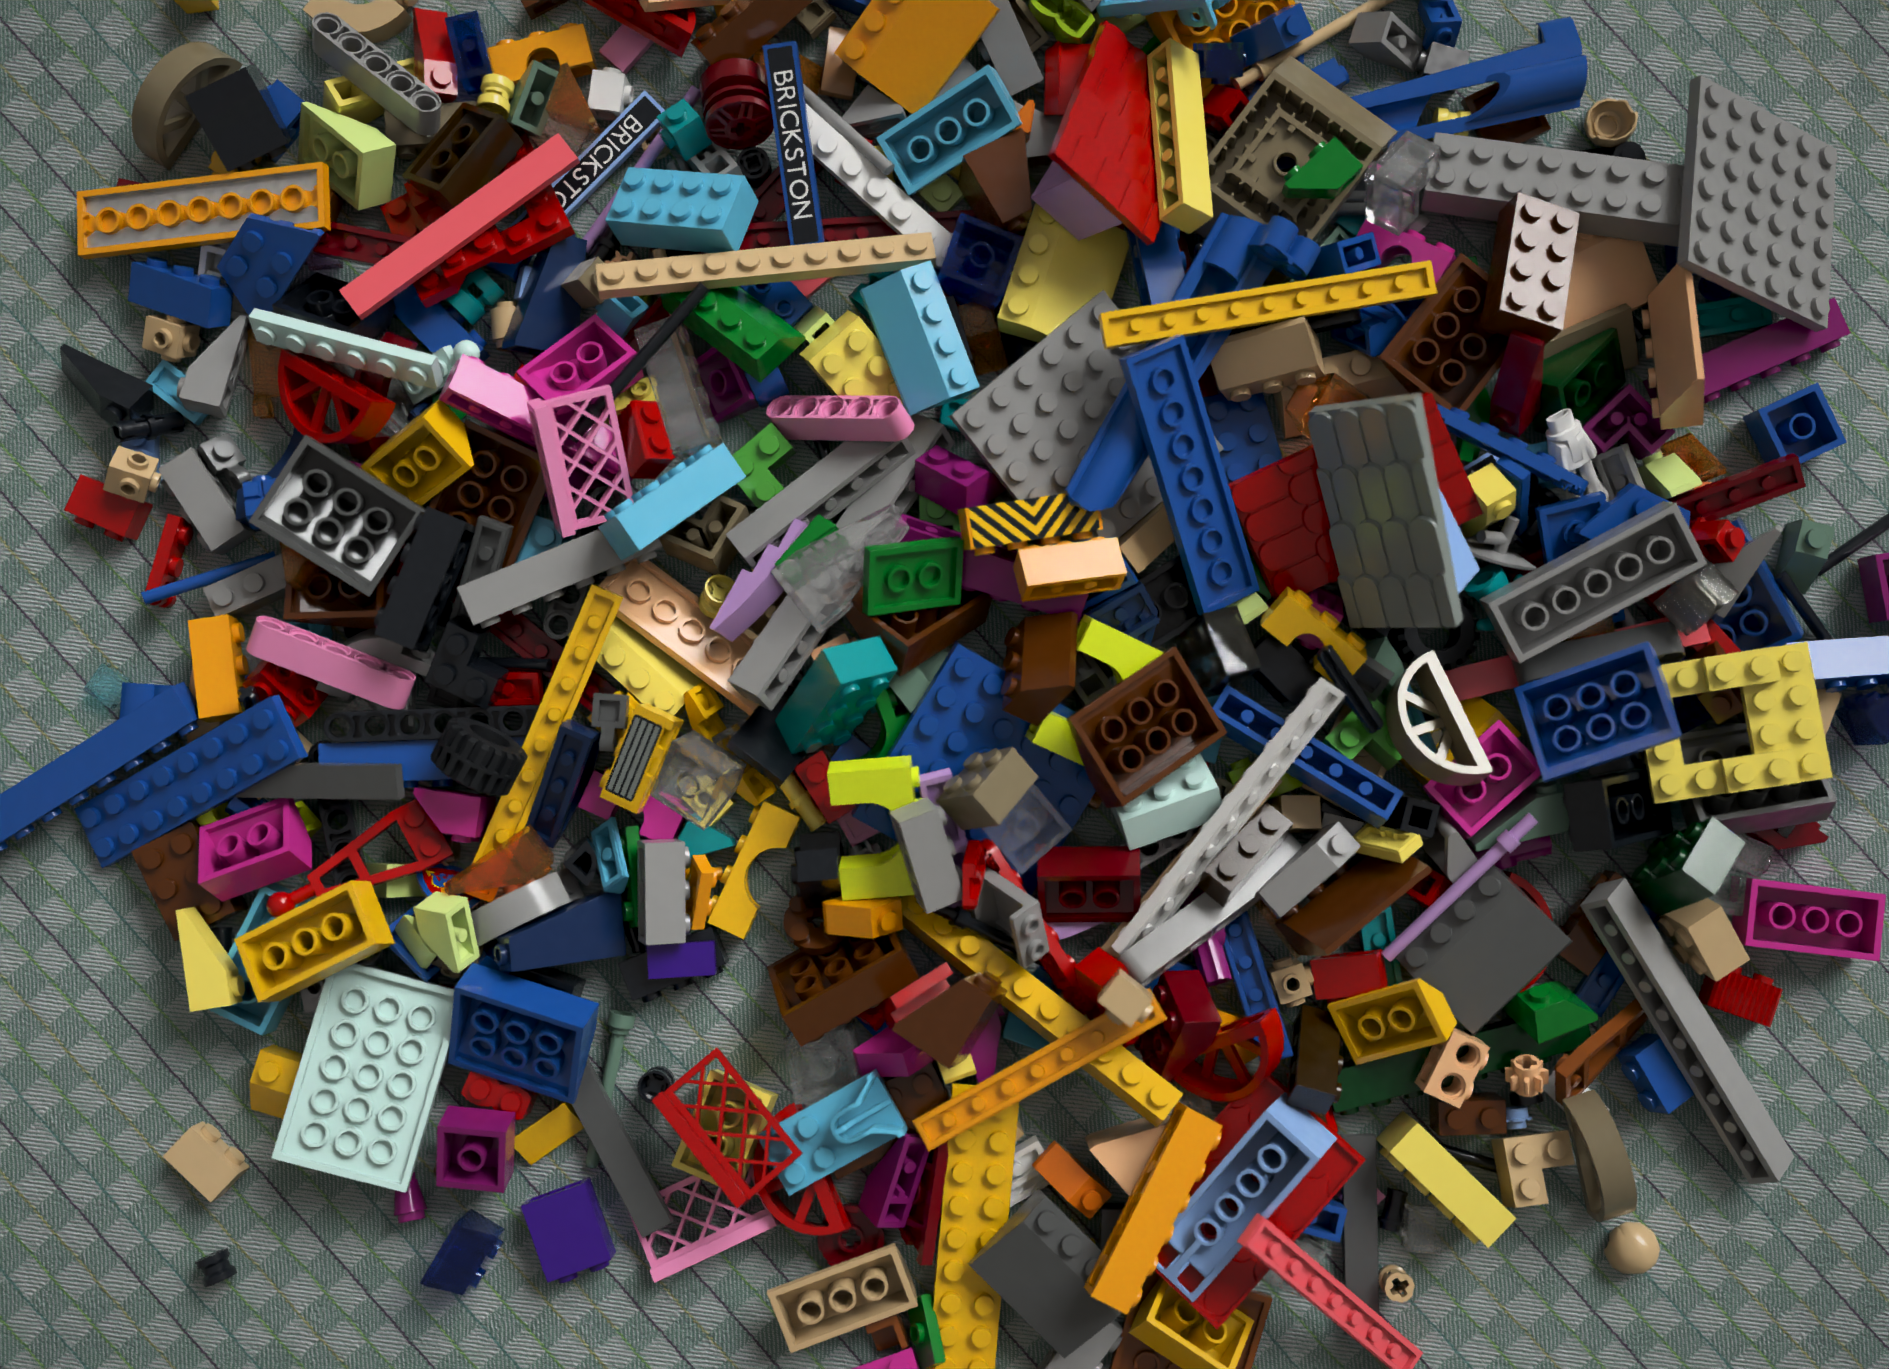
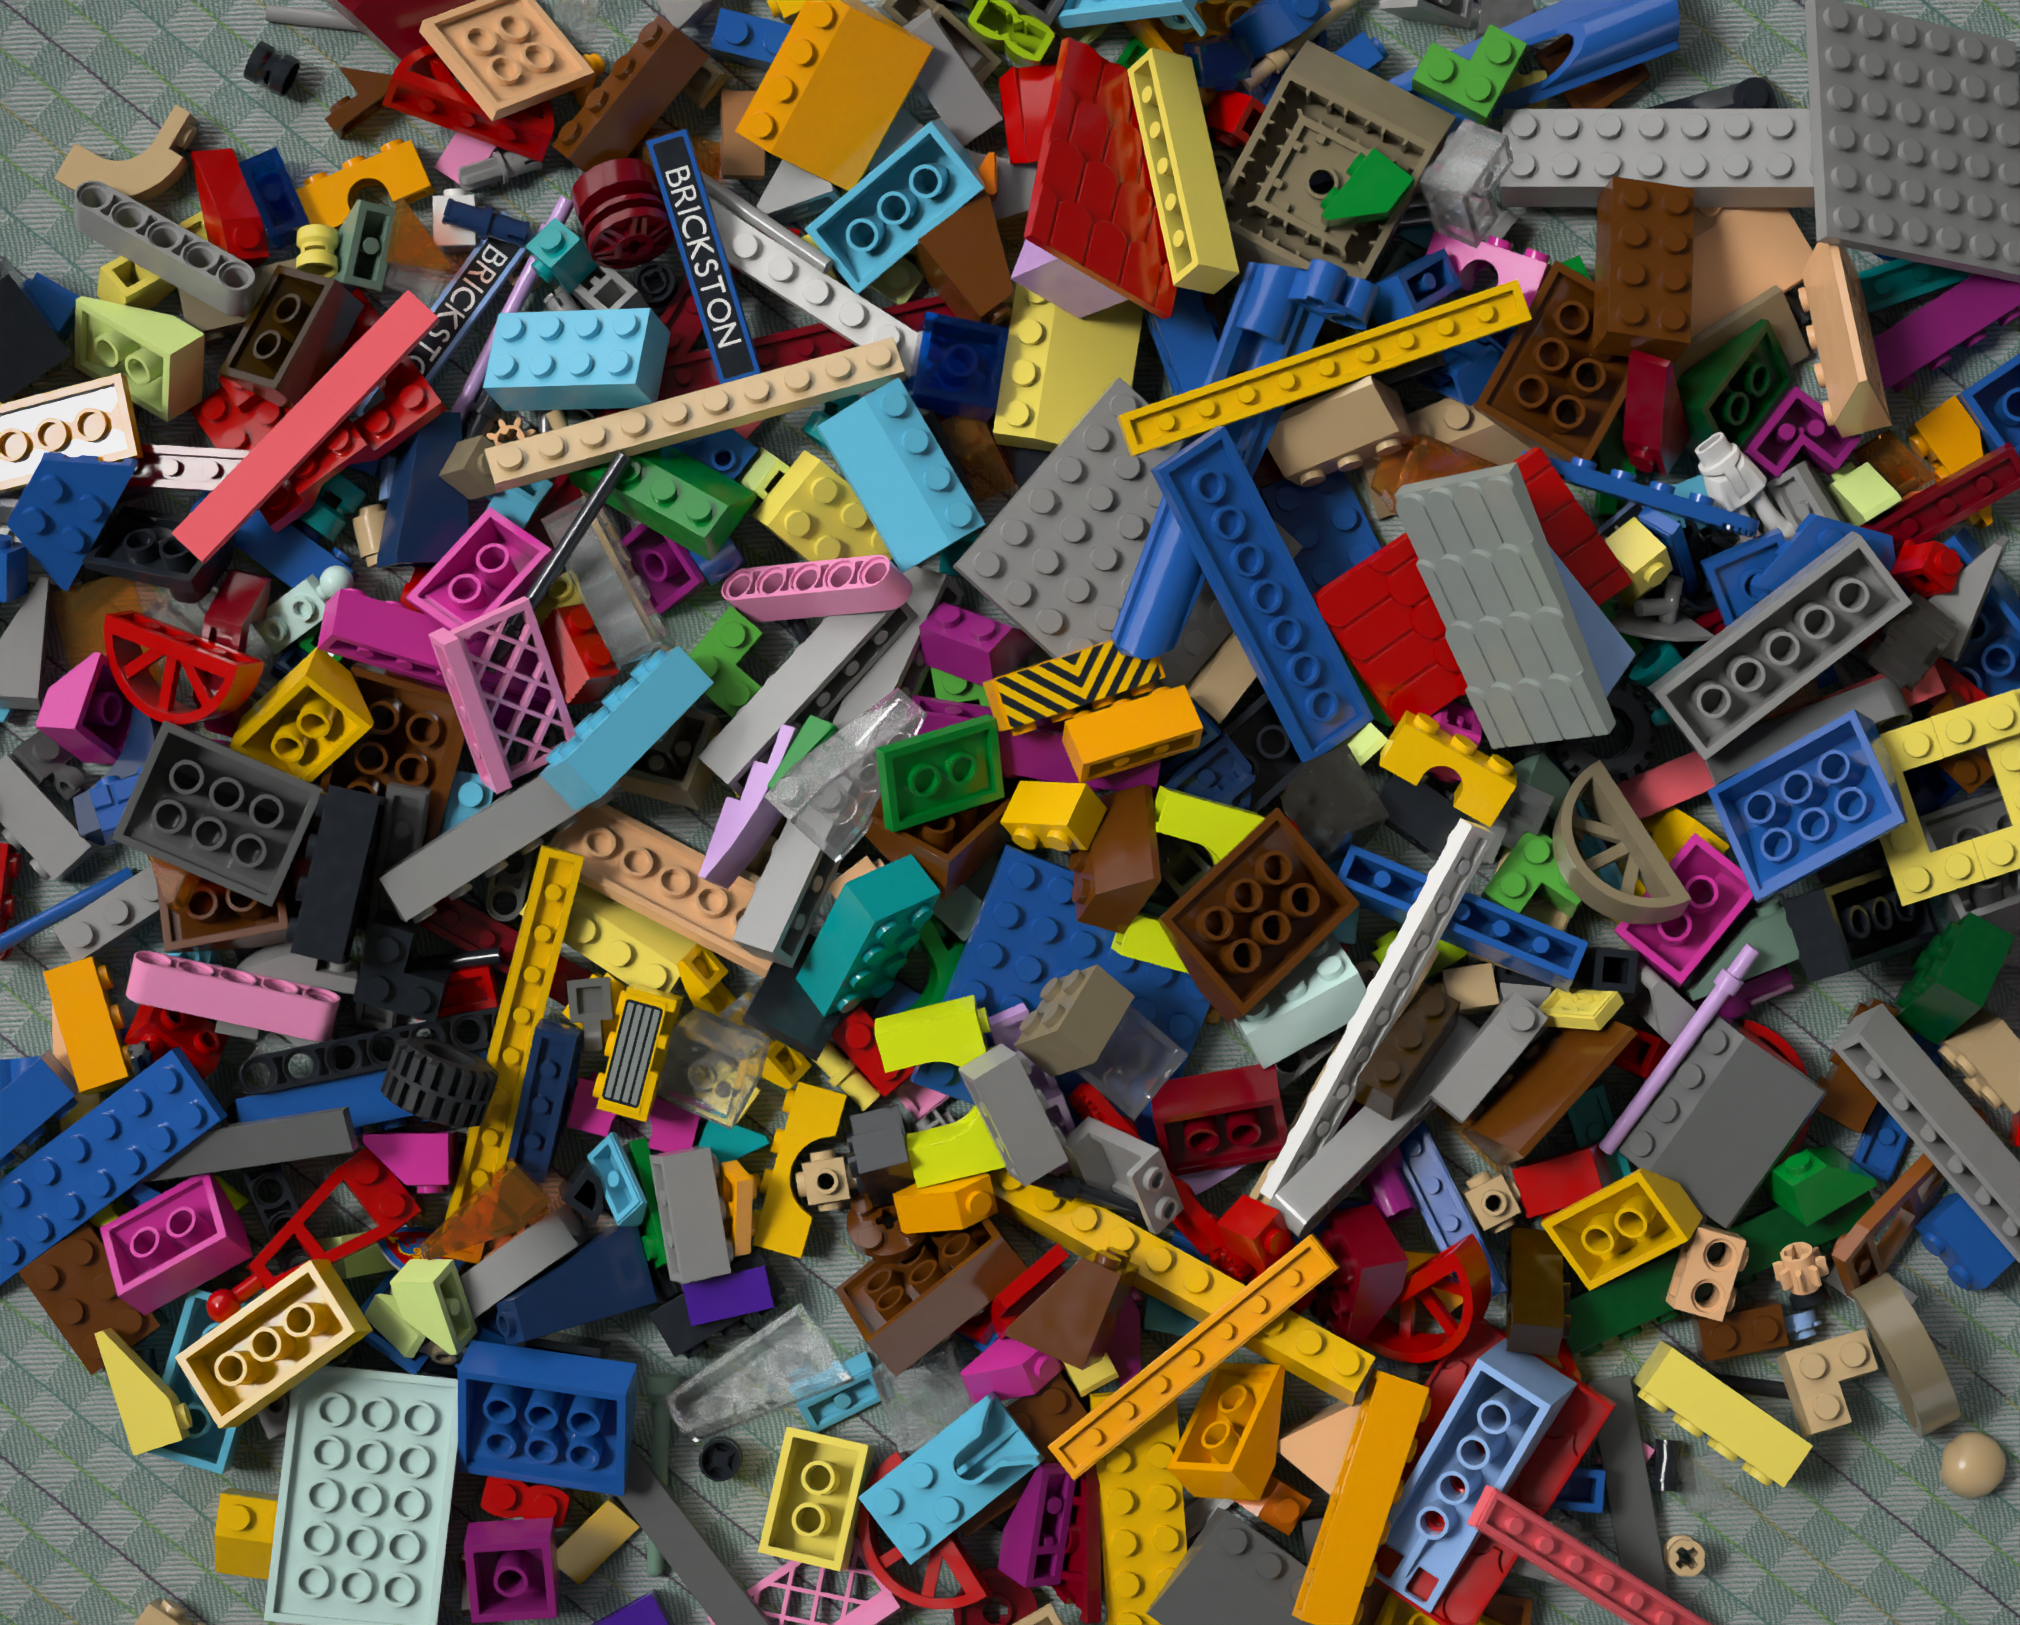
camera: 10 degrees left, 0 degrees up
(256, 424) = (87, 712): none -> dark pink slope
(346, 348) = (189, 602): light aqua plate -> none
(629, 95) = (486, 223): none -> dark blue pin
(646, 59) = (495, 169): none -> light grey axle
(694, 1027) = (760, 1376): none -> clear wedge
(703, 1146) = (794, 1518): red fence -> none
(714, 594) = (695, 834): light yellow wheel -> none
(756, 1046) = (845, 1400): none -> medium azure slope
(782, 872) = (821, 1163): none -> tan brick
(973, 873) = (1074, 1128): red tile -> none
(996, 624) = (1053, 815): none -> yellow brick
(1059, 1133) = (1232, 1433): none -> light orange slope
(1125, 999) = (1284, 1250): tan brick -> none
(1347, 684) = (1497, 821): black axle -> none
(1414, 106) = (1474, 85): none -> bright green brick
(1610, 122) = (1724, 56): tan hair -> none
(1739, 447) = (1949, 443): none -> light orange slope

